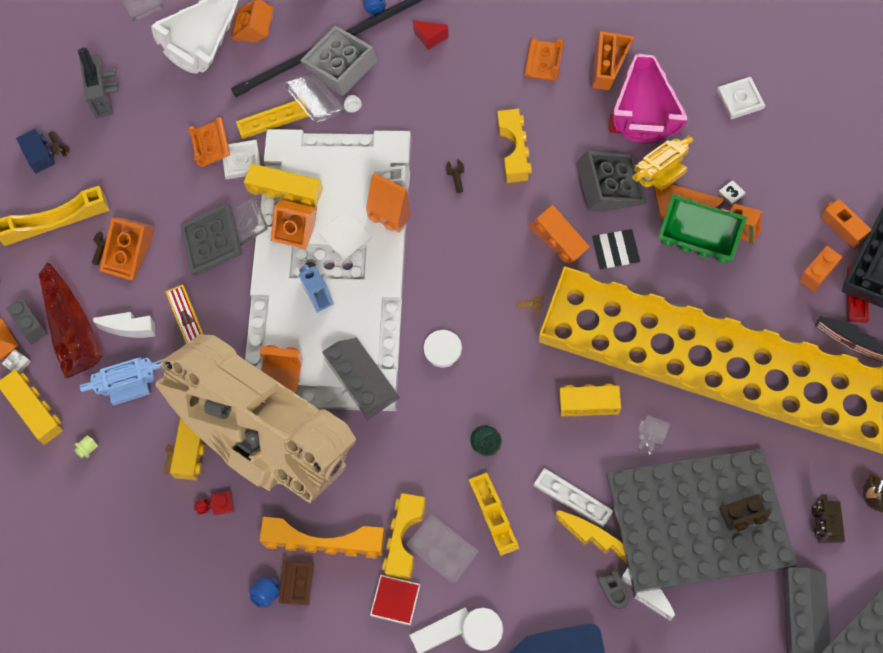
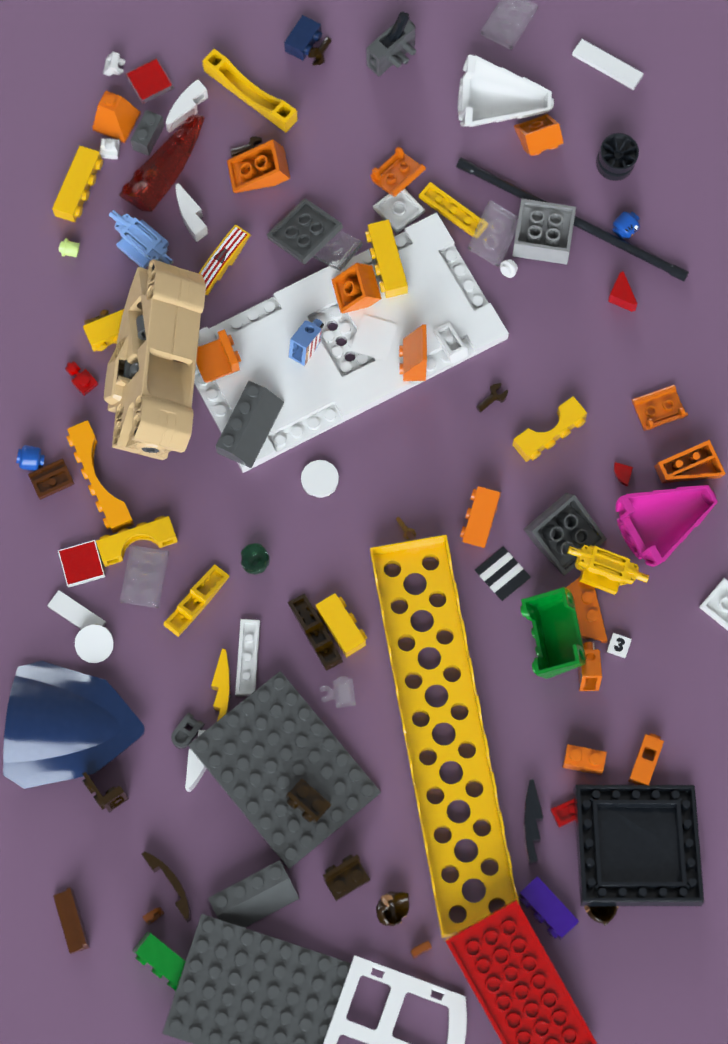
camera: 55 degrees right, 5 degrees up
(25, 274) = (186, 105): none -> white slope
(582, 426) = (315, 632): none -> dark brown slope
(583, 113) = (623, 473): none -> red tile

